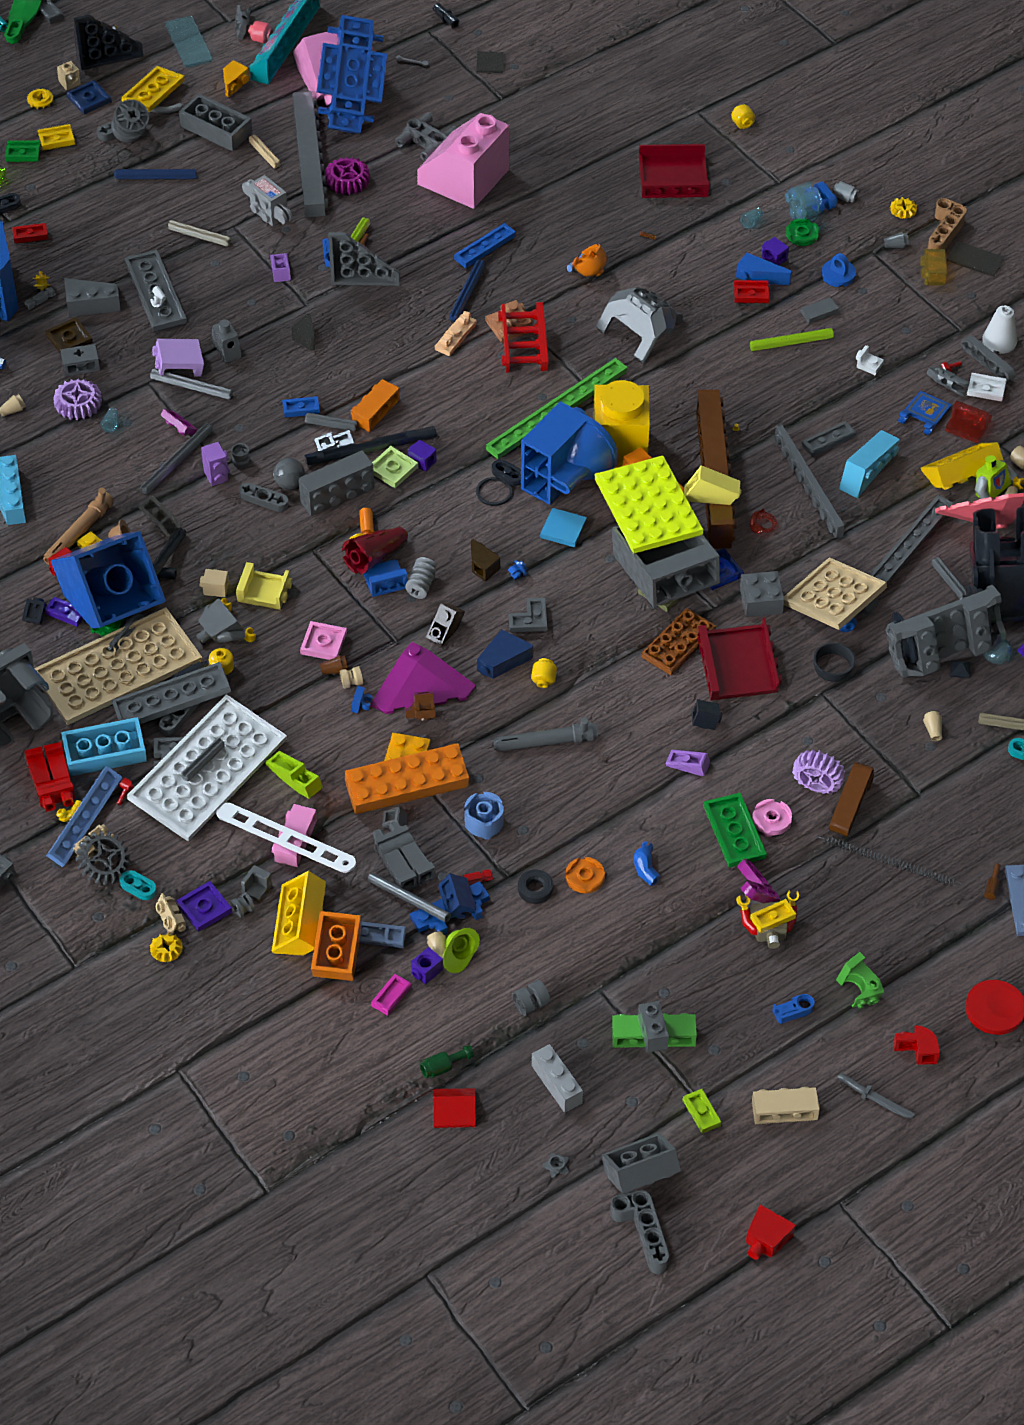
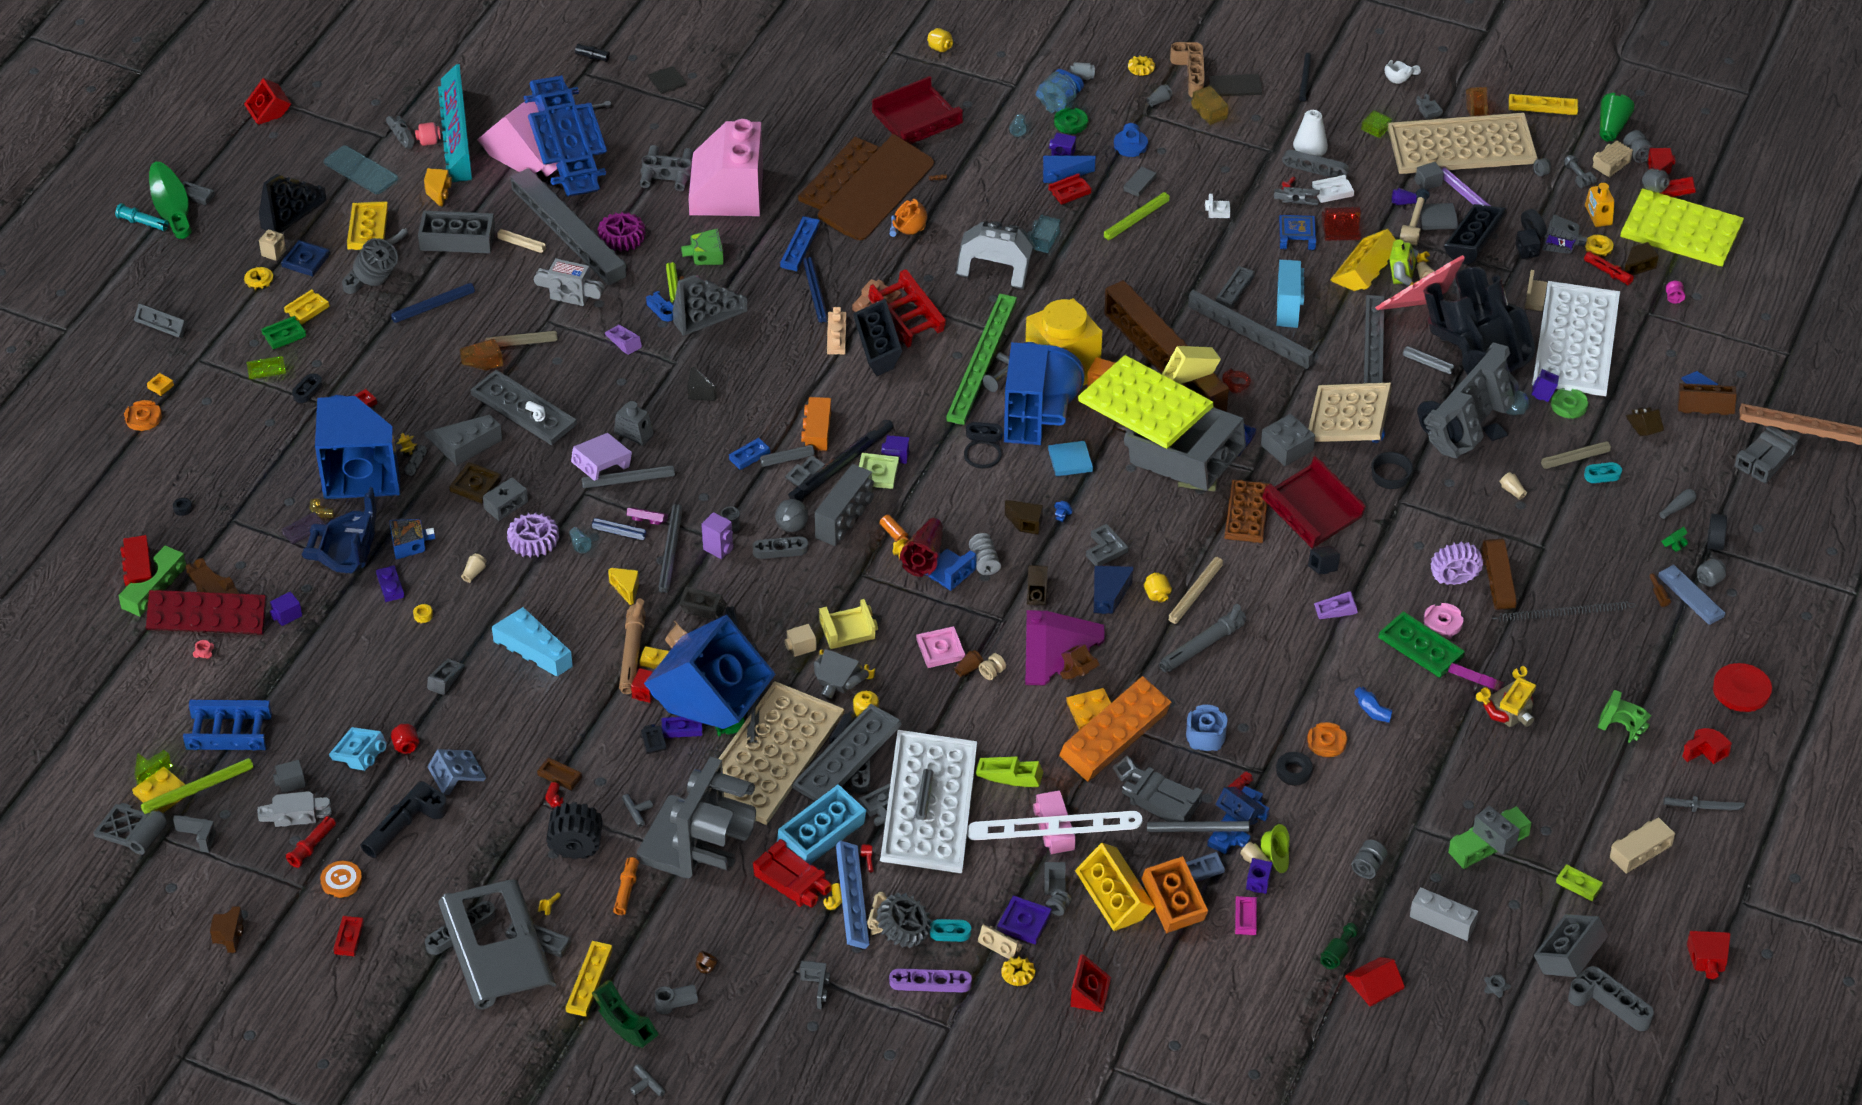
camera: 30 degrees left, 5 degrees down
(90, 919) = (930, 977): none -> medium lavender beam
(118, 472) = (625, 582): none -> yellow slope
(149, 424) = (618, 528): none -> axle
(157, 233) = (482, 355): none -> clear orange slope
(209, 988) = (1089, 986): none -> red slope
(359, 700) = (1015, 682): blue tile -> none
(403, 217) = (705, 248): none -> bright green torso
(476, 352) = (878, 336): none -> black slope
(577, 690) = (1195, 590): none -> tan axle
(581, 216) = (865, 184): none -> reddish brown slope
(696, 321) = (1044, 233): none -> clear light blue brick
(792, 1010) = (1583, 767): blue piece -> none

